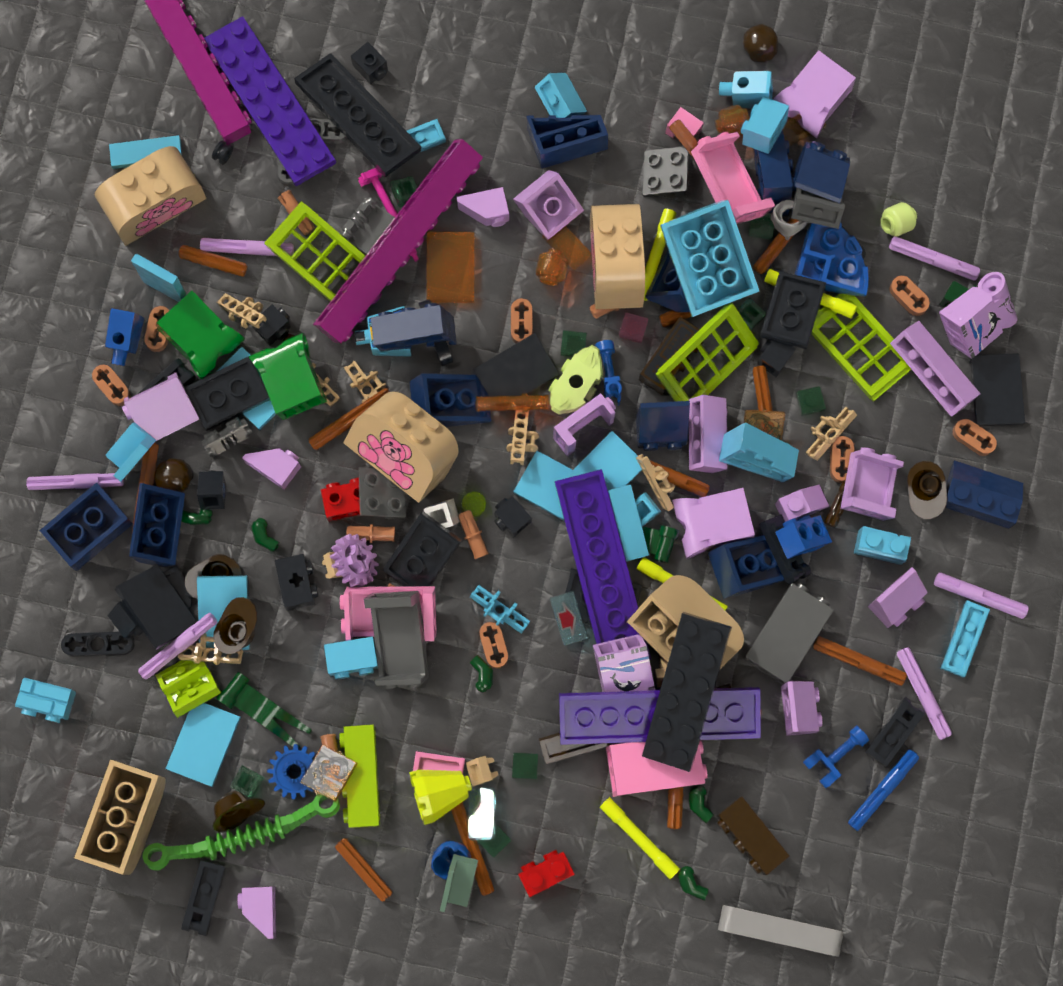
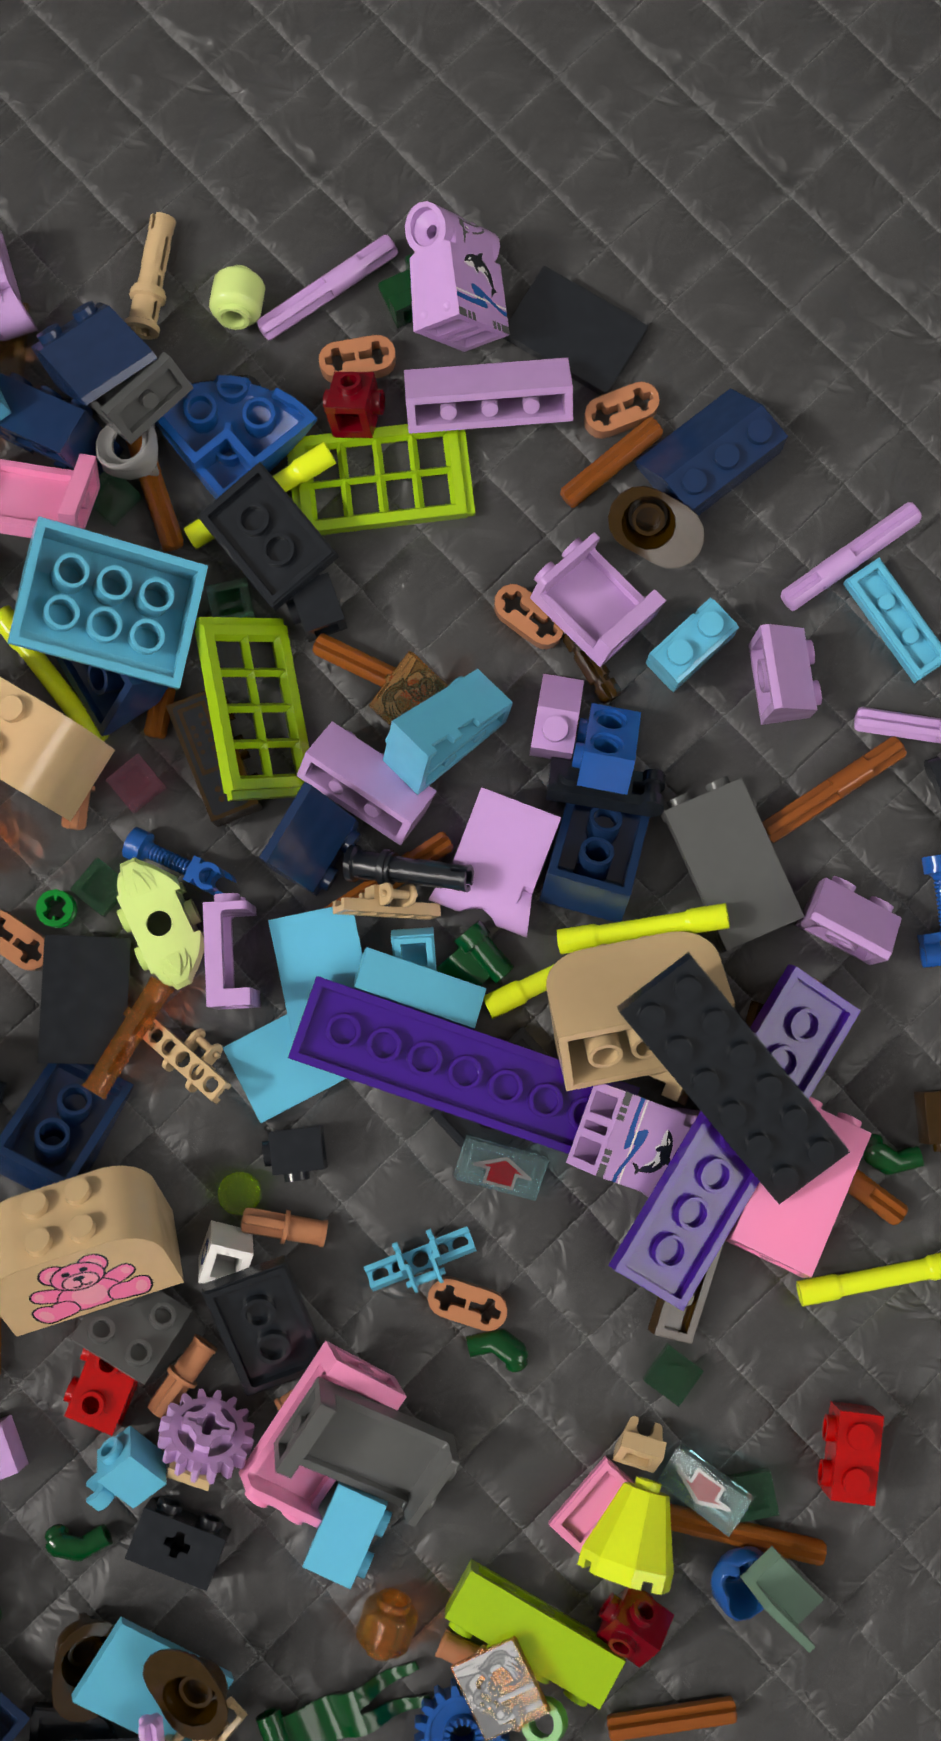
camera: 50 degrees left, 5 degrees up
(315, 534) = (126, 1468): none -> medium azure brick
(321, 703) = (387, 1624): none -> clear orange head
(397, 819) = (634, 1625): none -> dark red brick
(553, 336) = (43, 908): none -> green bush
(676, 469) = (392, 868): none -> black pin
(749, 631) = (692, 920): none -> neon yellow piece
(810, 401) = (415, 602): clear green plate -> none
(838, 422) = (473, 585): tan piece -> none
(871, 177) = (148, 291): none -> tan pin
(885, 308) = (353, 404): none -> dark red brick
(945, 449) = (611, 462): none -> dark orange axle

